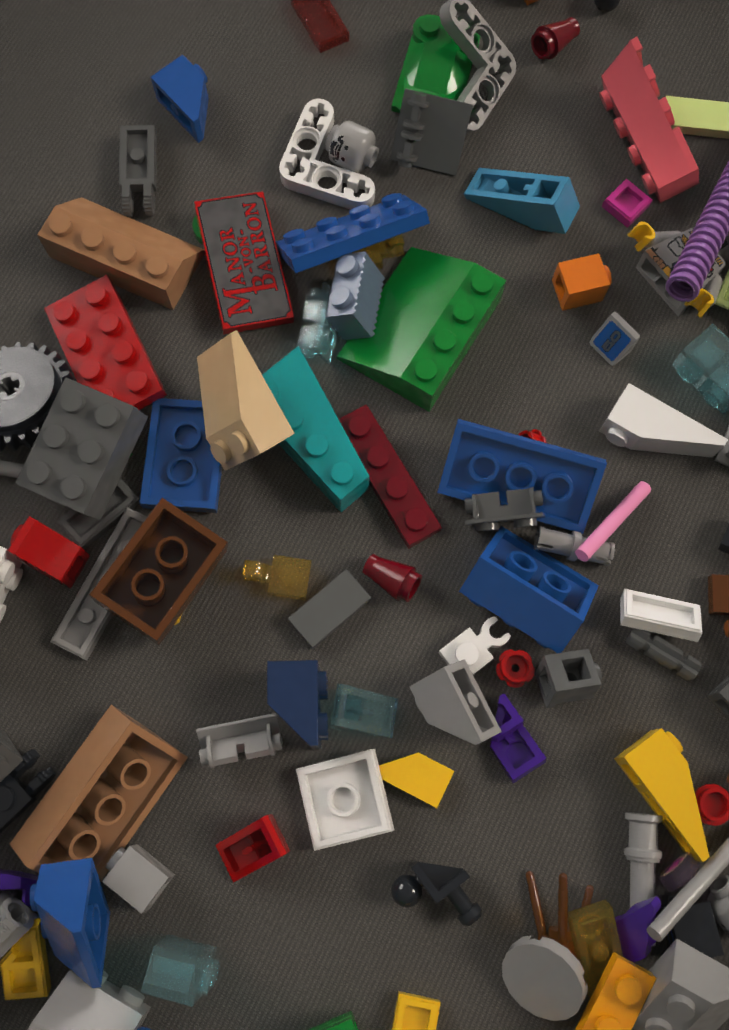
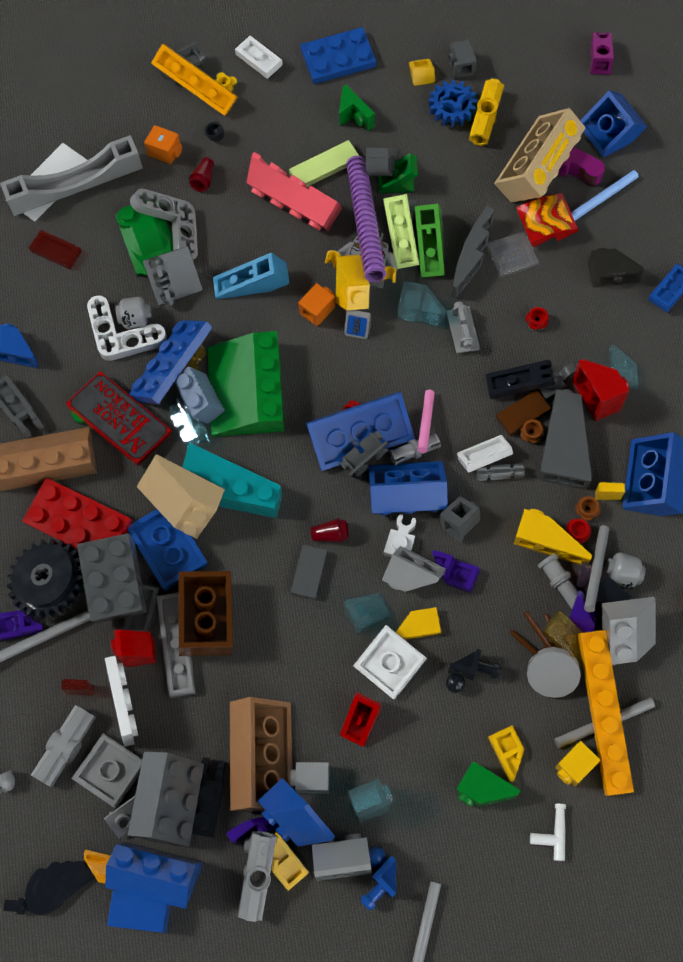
camera: 30 degrees left, 5 degrees down
(224, 741) = (310, 671): light grey hinge -> none
(286, 576) = (272, 571): clear yellow plate -> none
(295, 695) = (328, 627): dark blue slope -> none
(390, 478) = (292, 481): dark red plate -> none
(522, 660) = (429, 527): red plate -> none
(626, 203) = (310, 243): dark pink tile -> none
(643, 282) = (351, 285): none -> yellow slope
(653, 426) = (410, 357): white slope -> none

